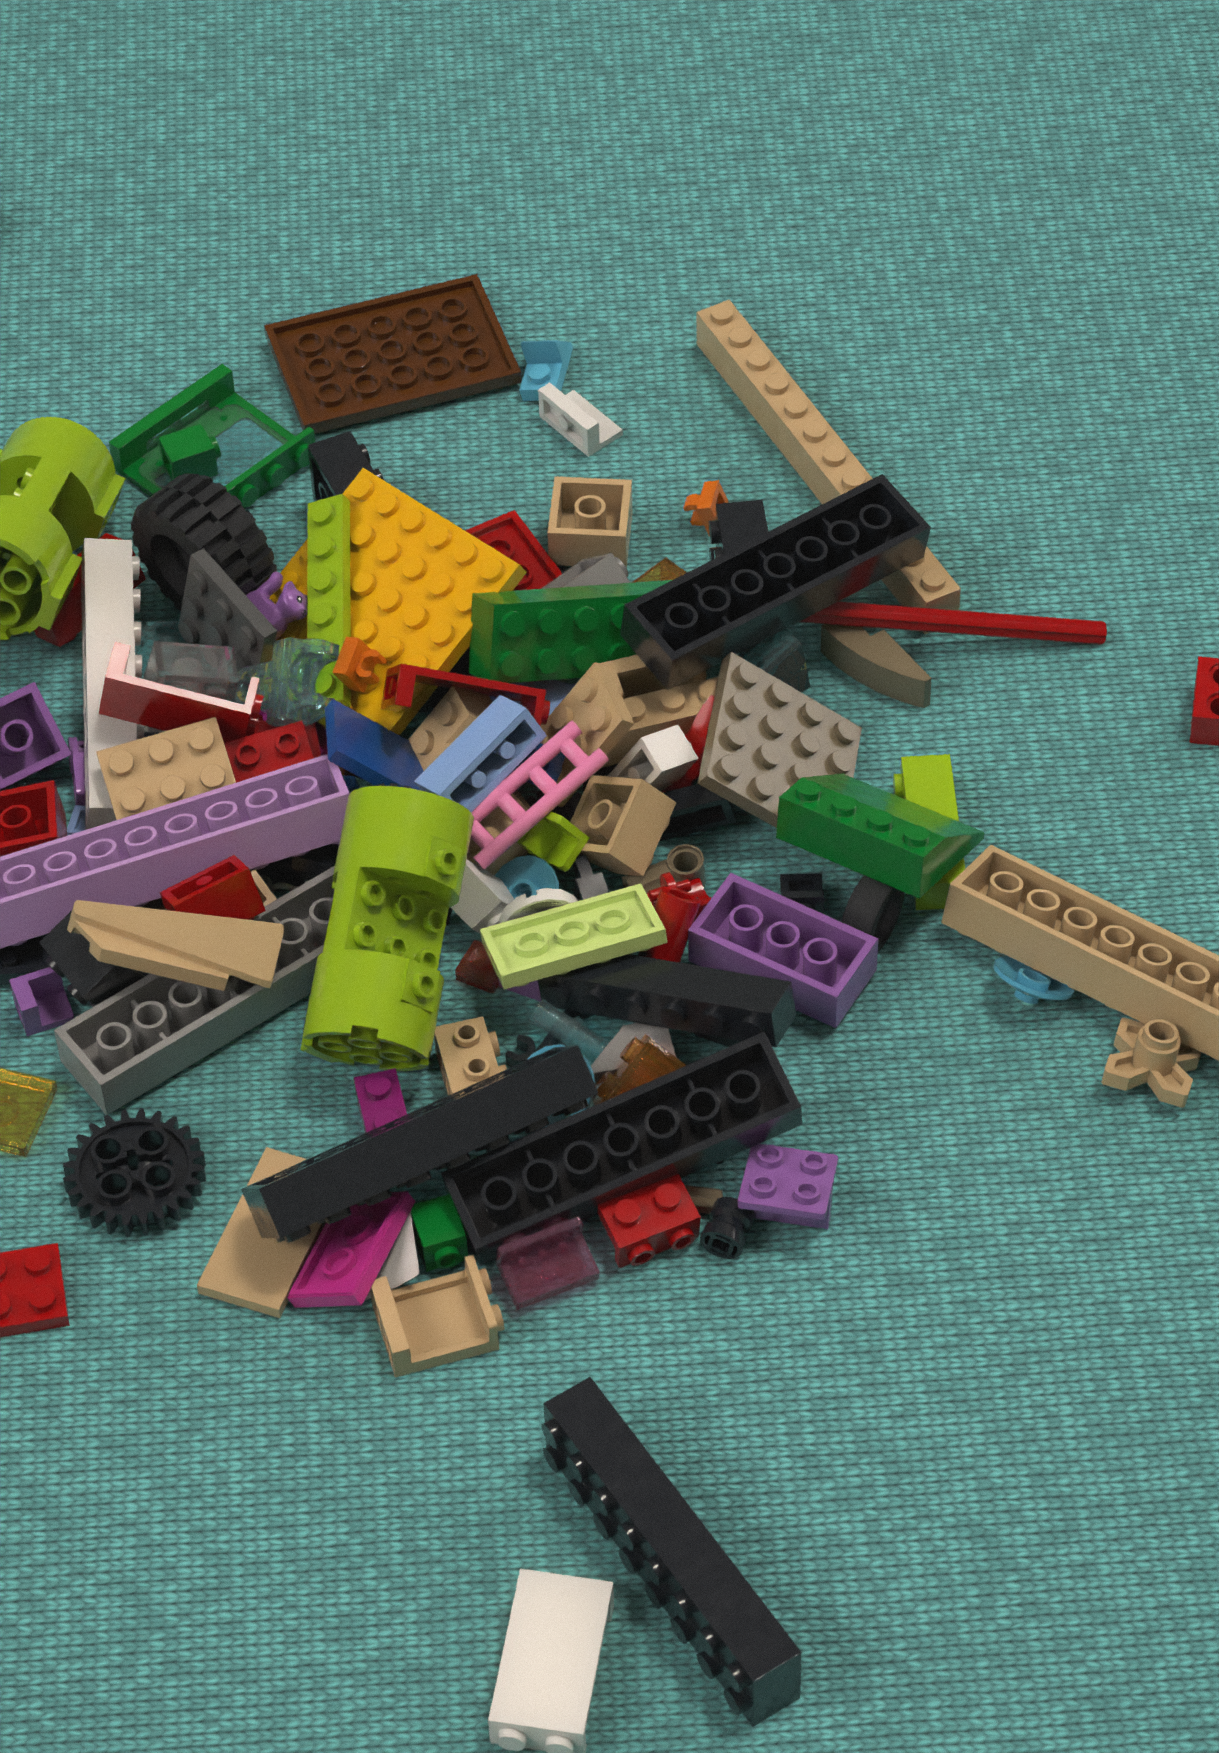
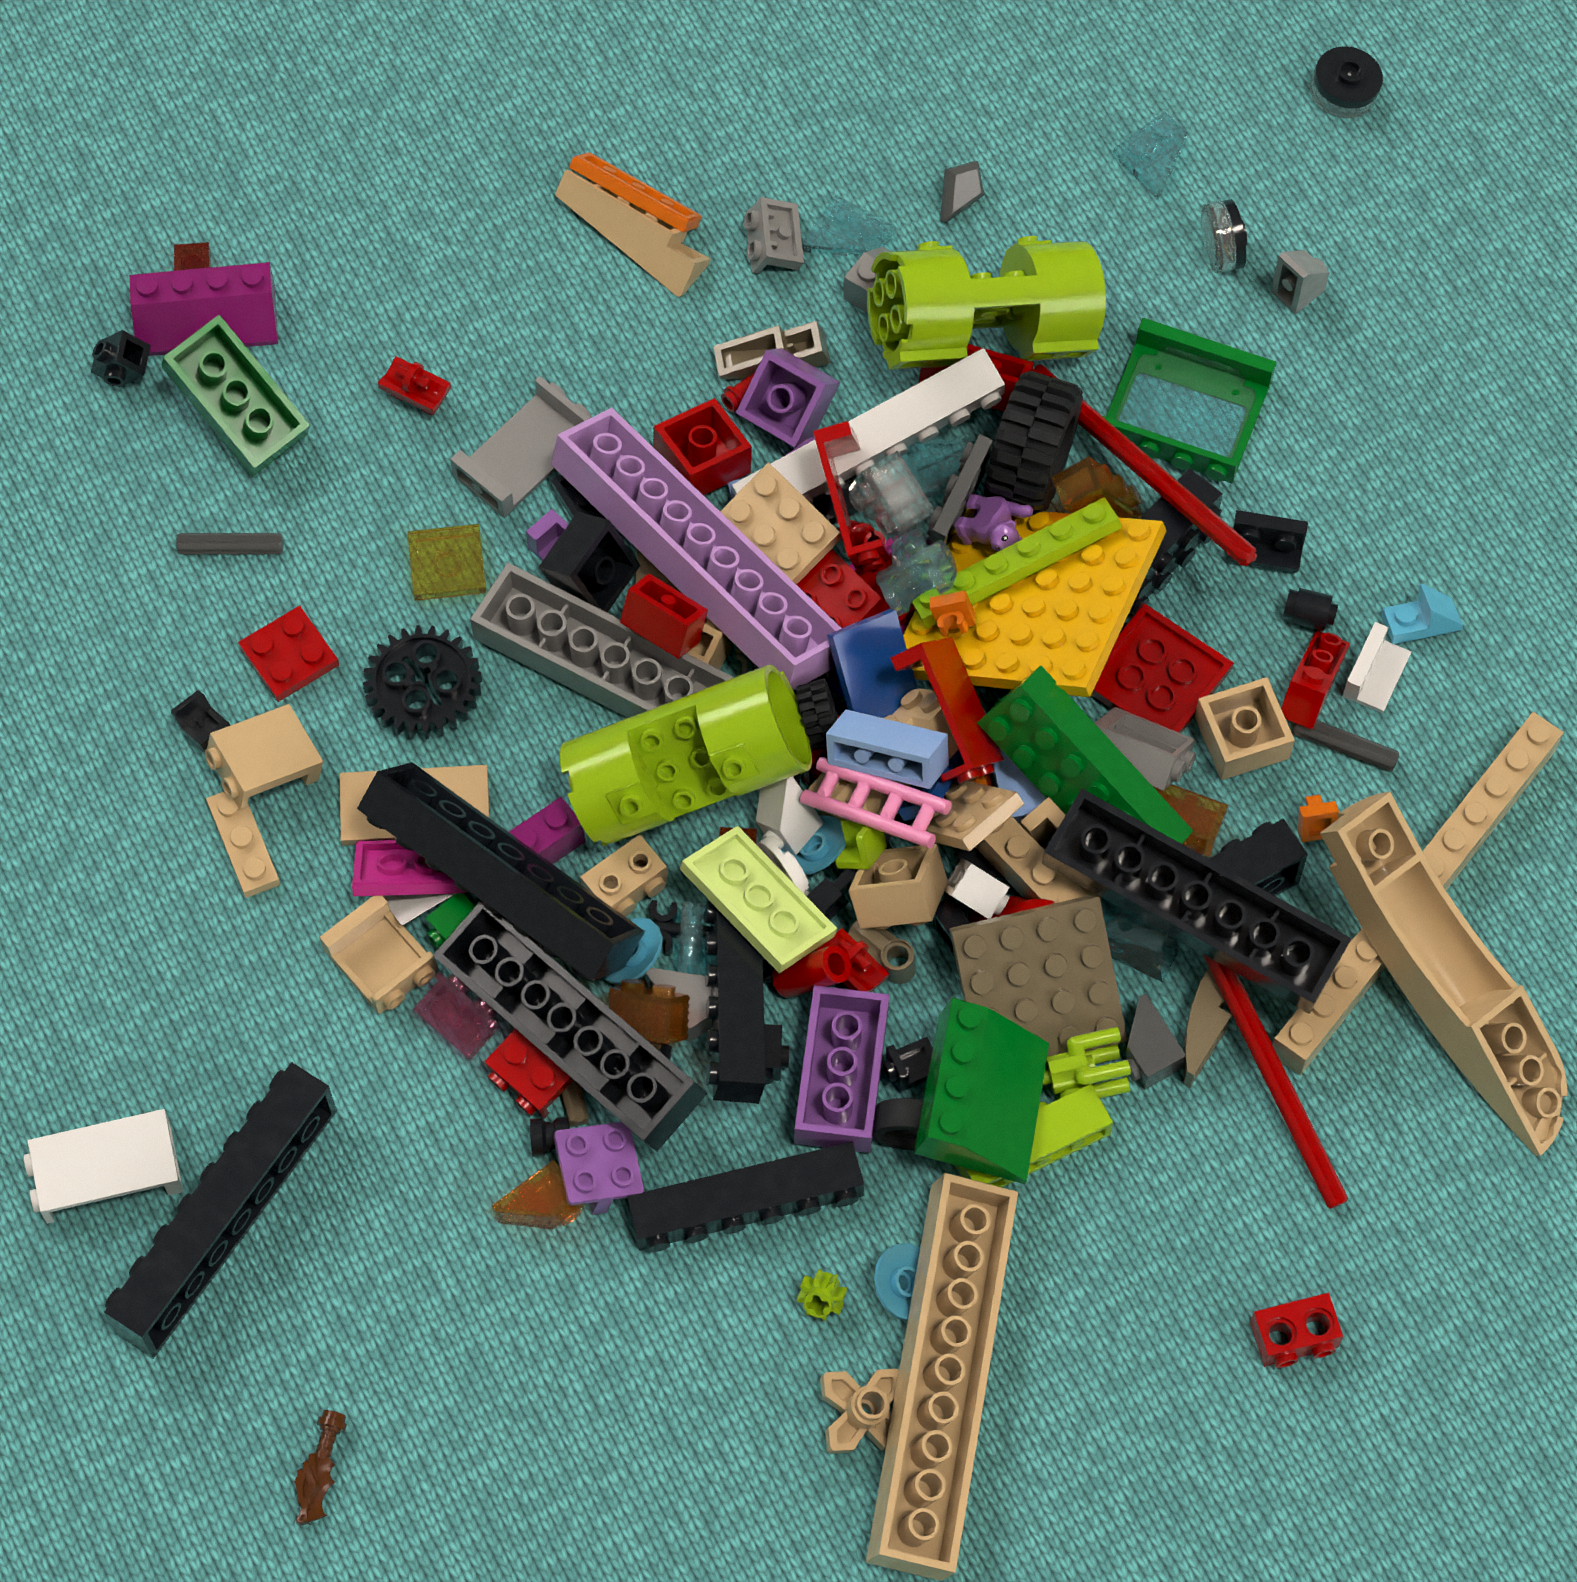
camera: 65 degrees right, 15 degrees up
(61, 354) = (1224, 236): none -> clear piece
(62, 1395) = (198, 719): none -> black bracket
(141, 1341) = (262, 754): none -> tan panel
(143, 325) = (1298, 279): none -> light grey slope
(179, 944) = (602, 612): tan wedge -> none
(189, 452) = (1165, 385): green brick -> none
(222, 1408) = (243, 845): none -> tan plate
(284, 521) = (1089, 482): none -> clear orange brick
(339, 453) = (1163, 482): none -> red axle
(392, 354) = (1373, 489): reddish brown plate -> none
(402, 440) = (1276, 539): none -> black bracket
(490, 438) = (1310, 608): none -> black brick
(566, 454) = (1314, 679): none -> red slope
(650, 458) = (1349, 744): none -> dark grey axle
(796, 1257) = (537, 1202): none -> clear orange slope
(877, 1083) = (746, 1197): none -> black brick
(878, 706) = (1152, 1047): none -> dark grey slope
(878, 763) = (1078, 1066): none -> lime plant
(925, 454) = (1447, 969): none -> tan slope
(1012, 1576) = (315, 1478): none -> reddish brown piece
(1015, 1051) = (822, 1294): none -> lime gear

